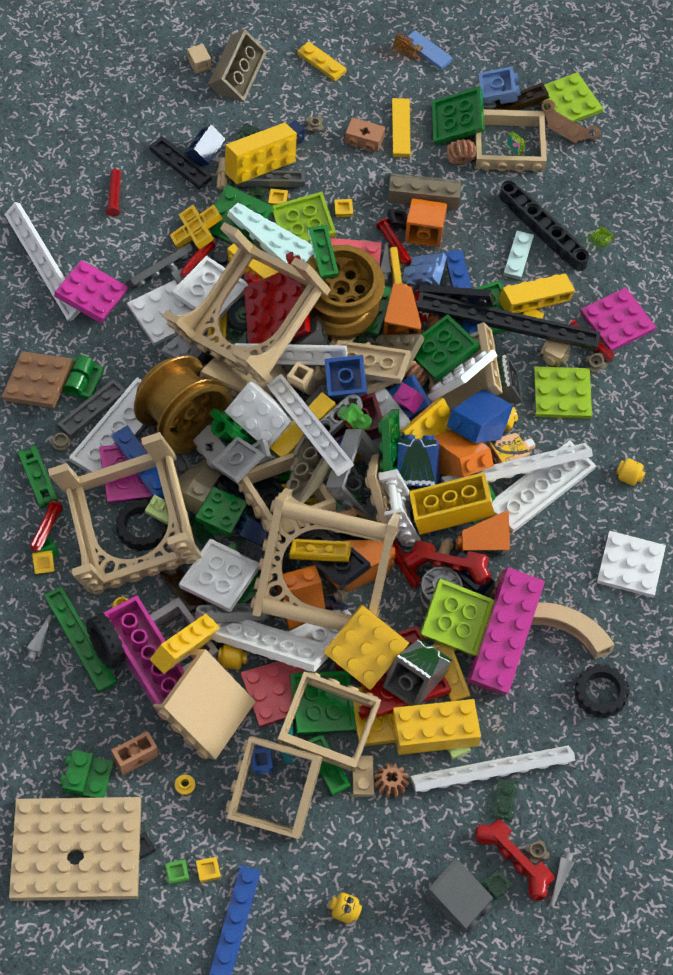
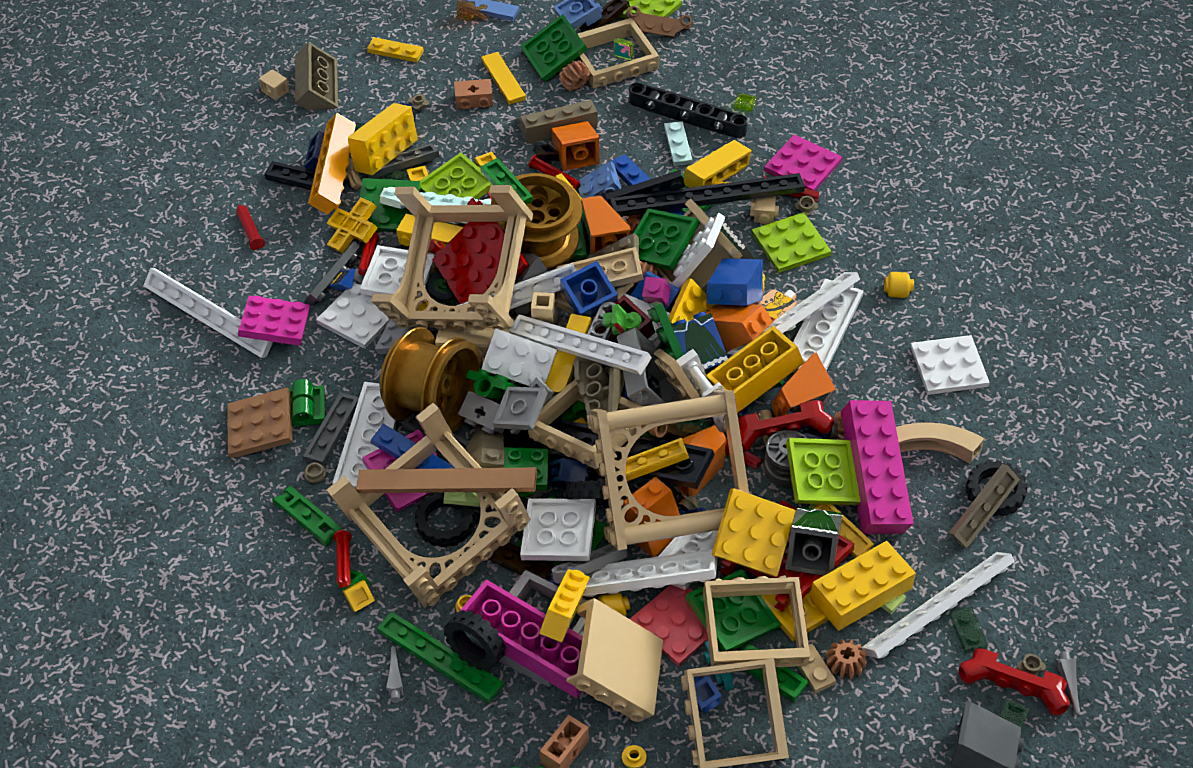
camera: 20 degrees left, 10 degrees down
(148, 498) = (446, 480): none -> medium nougat tile
(164, 276) = (344, 280): none -> blue slope
(206, 161) = (332, 165): none -> light orange brick
(576, 703) = (984, 506): none -> dark tan plate

